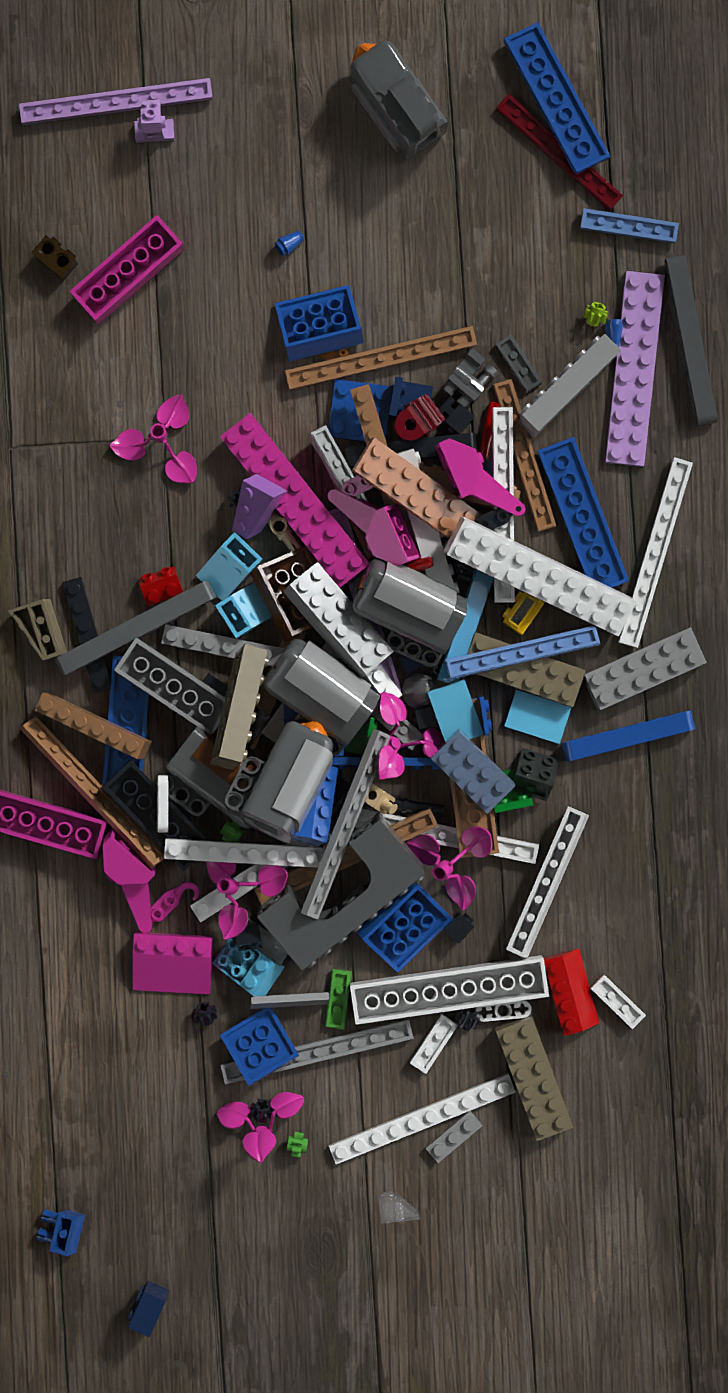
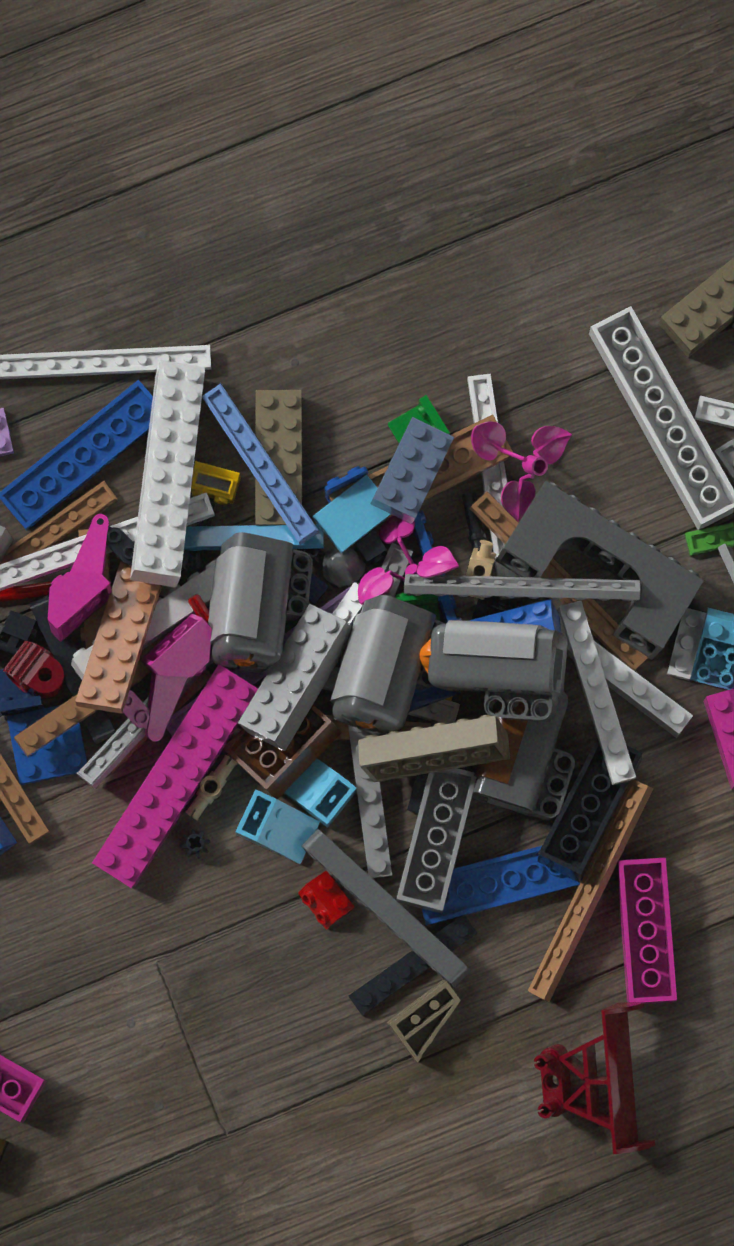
camera: 105 degrees left, 10 degrees down
(93, 725) = (514, 917): medium nougat brick -> none
(131, 442) = (121, 958): dark pink plant -> none
(133, 875) = (668, 808): dark pink slope -> none
(162, 803) = (574, 800): white beam -> none
(231, 832) = (578, 719): bright green gear -> none
(234, 919) = (676, 678): dark pink plant -> none
(249, 938) = (690, 656): black brick -> none
(255, 504) = (196, 817): medium lavender wedge -> none
(404, 926) = (614, 488): blue slope -> none
(459, 927) = (591, 431): black brick -> none
(467, 1018) = (689, 387): black gear -> none
(508, 1016) = (678, 366): white beam -> none
(535, 774) = (390, 406): pearl dark grey bracket -> none
(537, 716) = (325, 428): medium azure tile -> none
(547, 882) = (505, 352): white brick -> none
(570, 991) = (618, 287): red slope -> none
(618, 1001) = (608, 234): white plate -> none
(628, 736) = (312, 322): blue beam -> none
(644, 669) = (231, 329): light grey brick -> none

